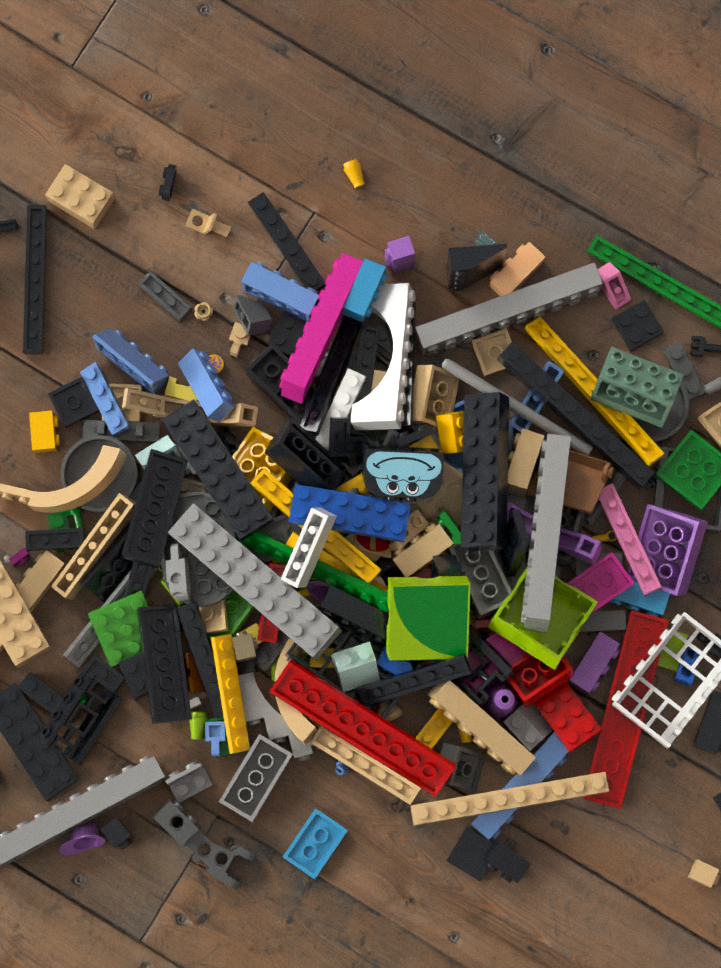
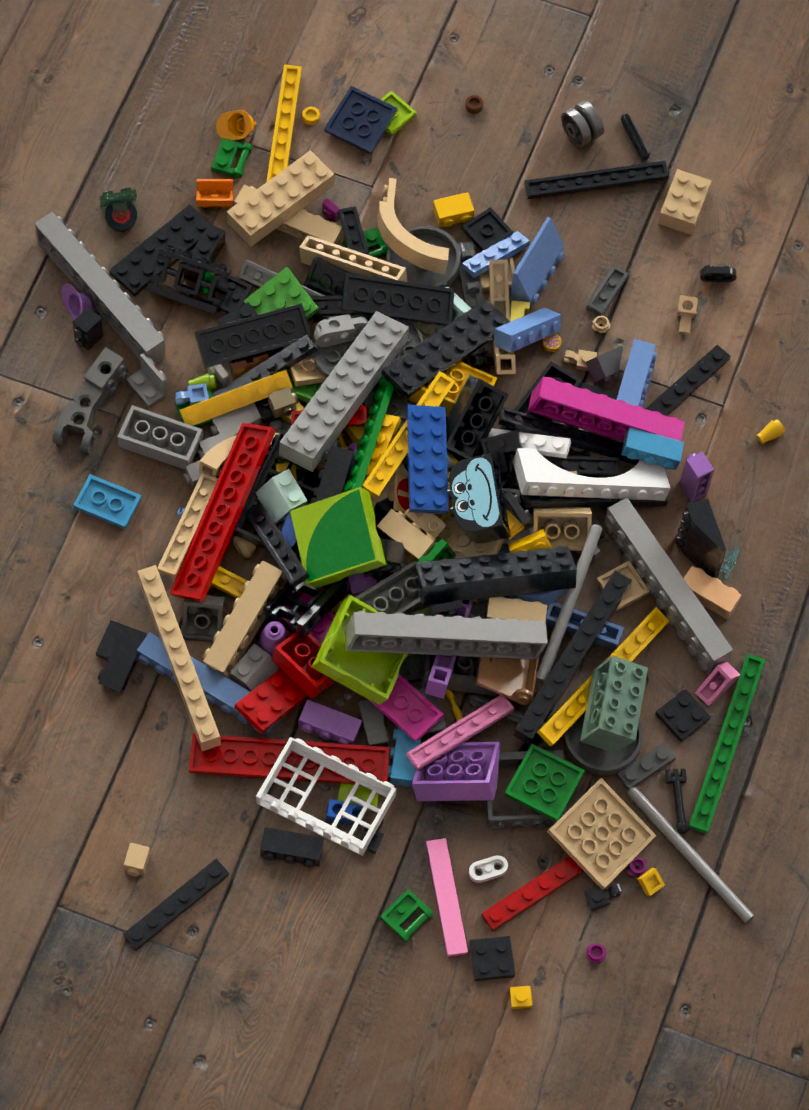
camera: 75 degrees right, 15 degrees down
(308, 547) = (384, 421): white brick -> none

